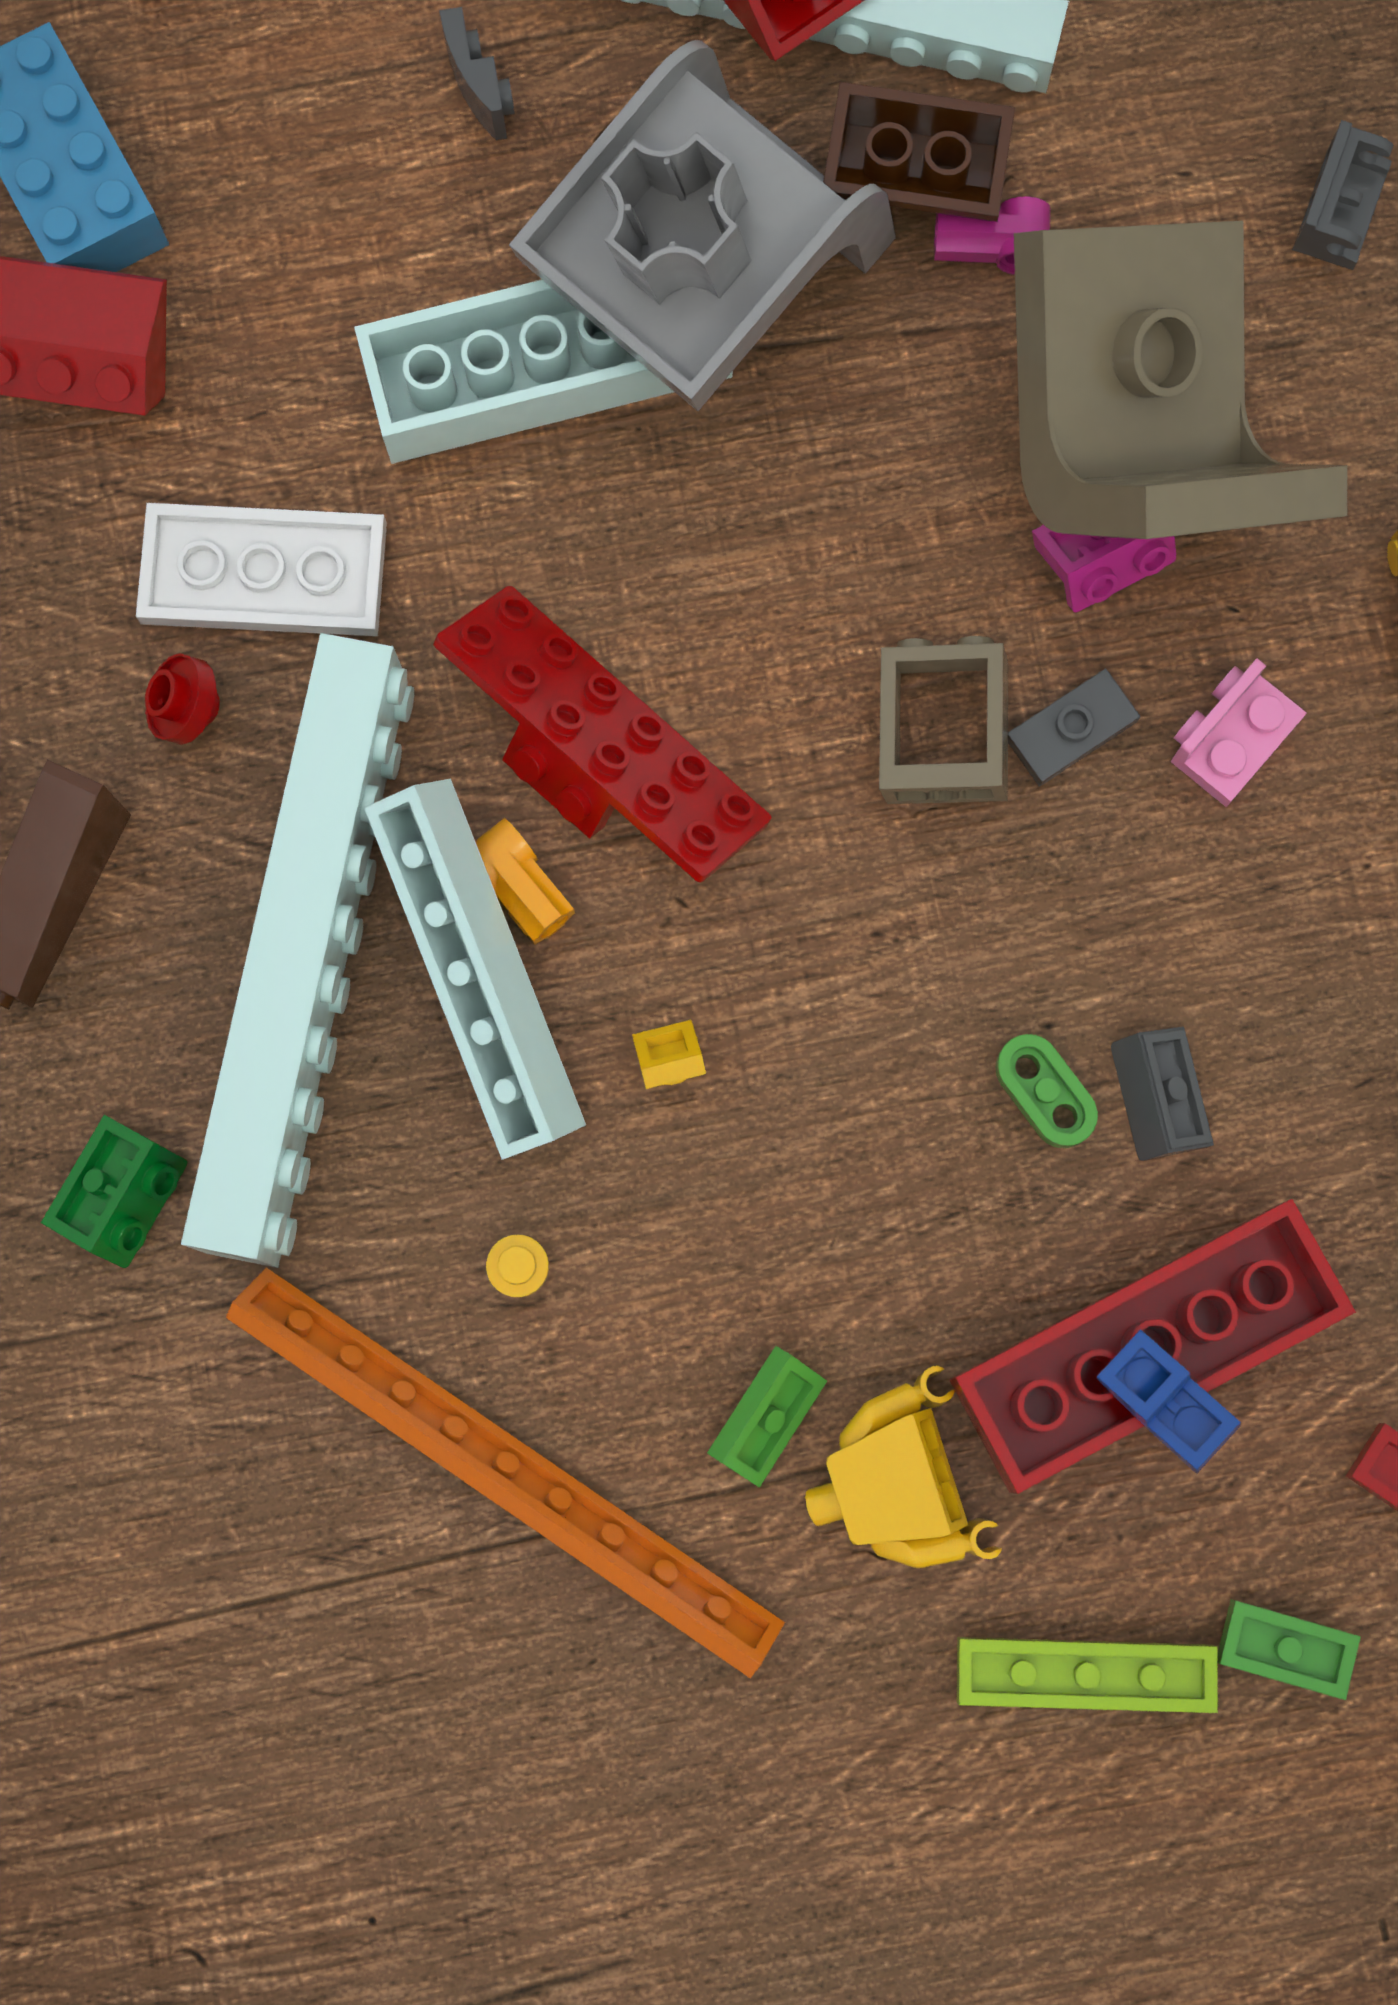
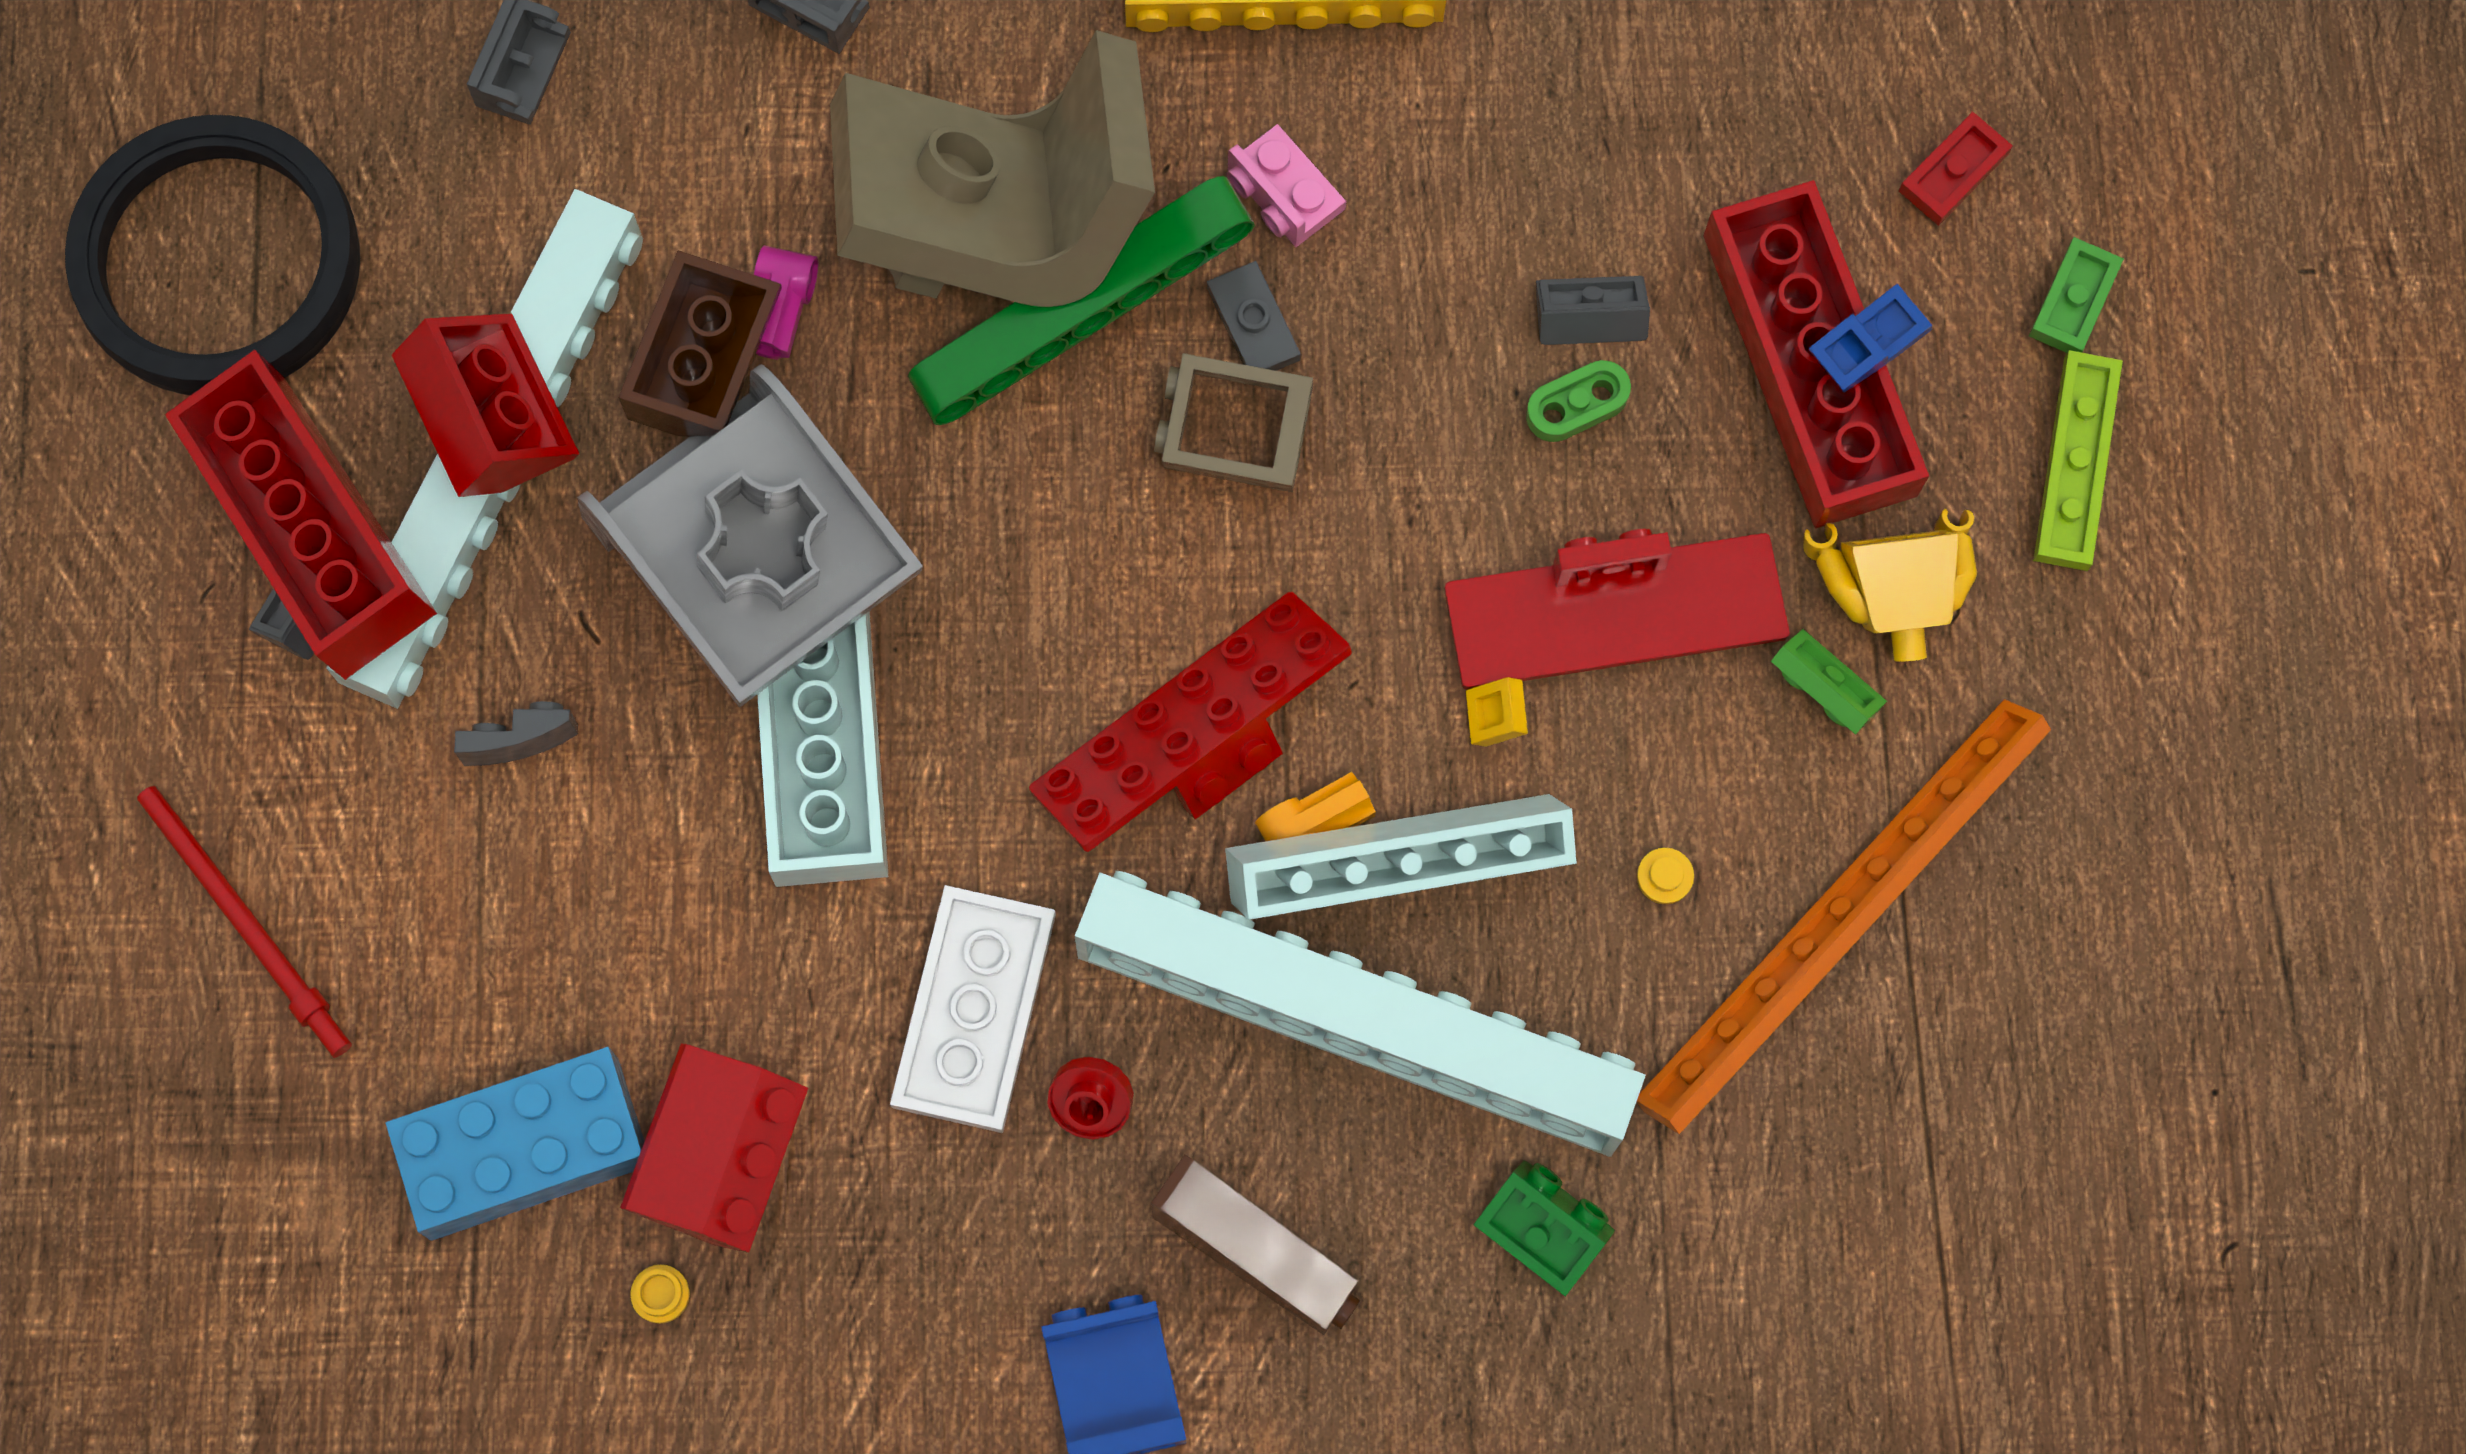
camera: 85 degrees left, 5 degrees down
(813, 1171) = (1616, 607): none -> red bracket
(1084, 570) = (1030, 336): none -> green beam

